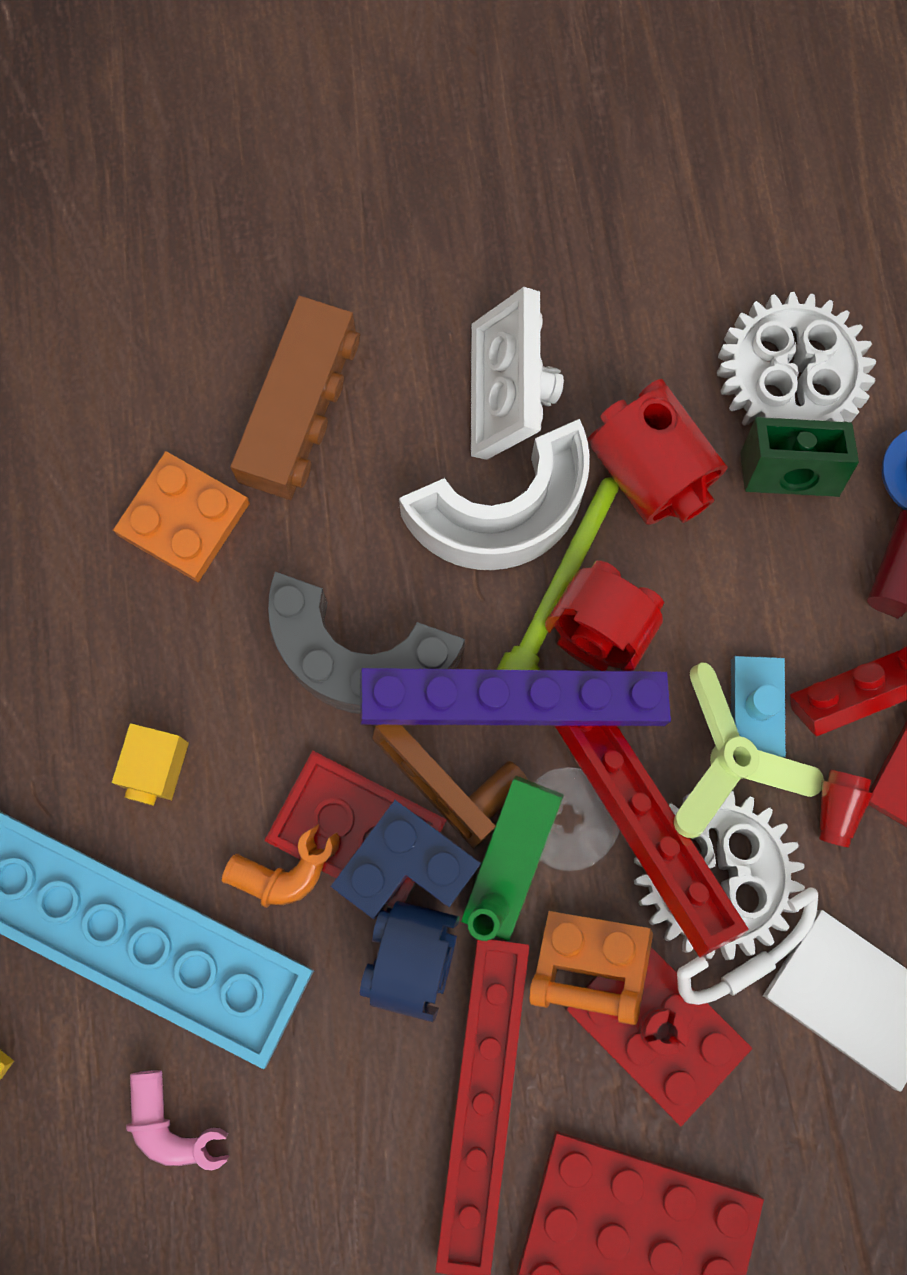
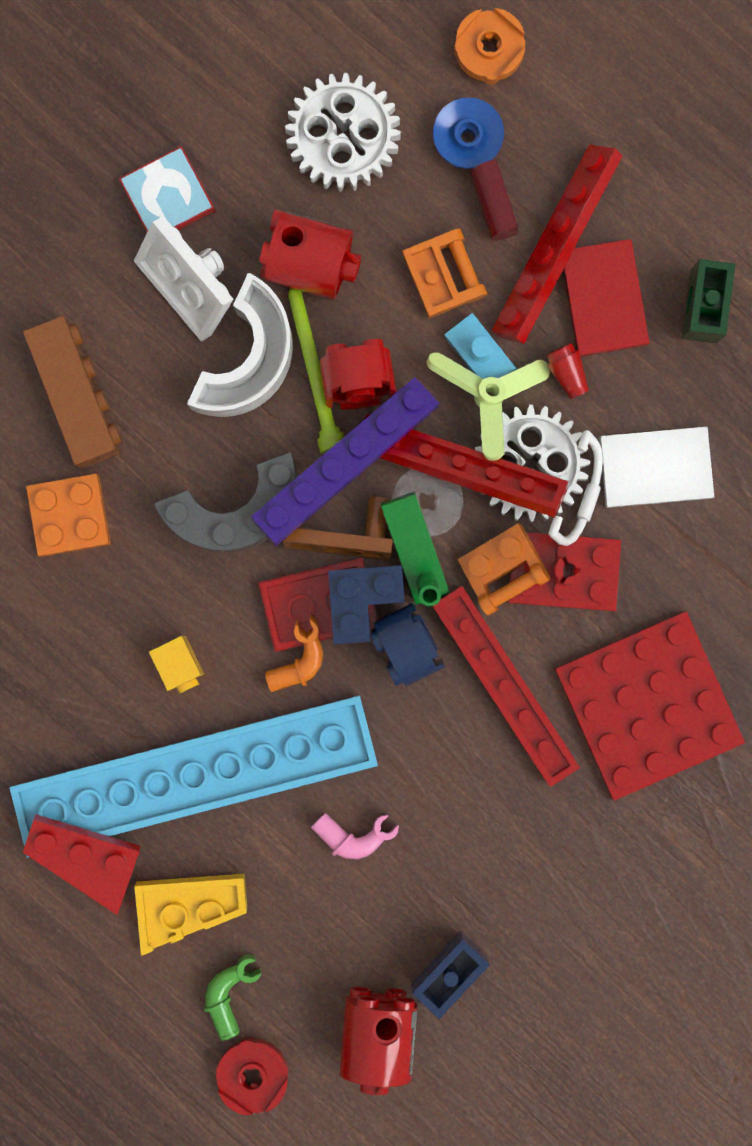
camera: 40 degrees left, 10 degrees up
(570, 283) = (169, 190): none -> tile
(771, 588) = (433, 277): none -> orange plate
(798, 456) = (387, 188): dark green brick -> none

